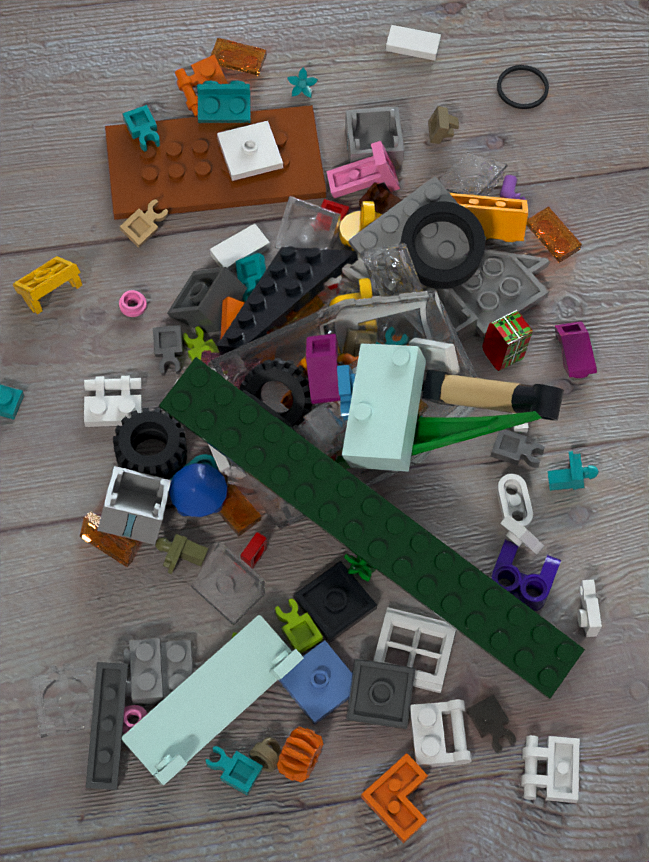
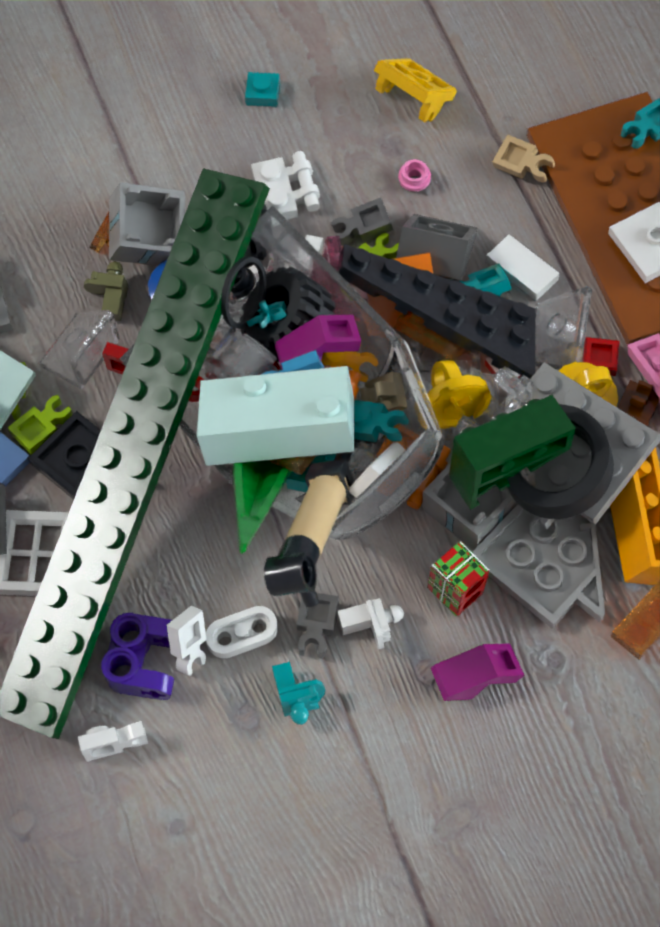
camera: 85 degrees right, 0 degrees up
(283, 401) = (268, 314): none -> teal plant
(439, 261) = (507, 445): none -> dark green wedge

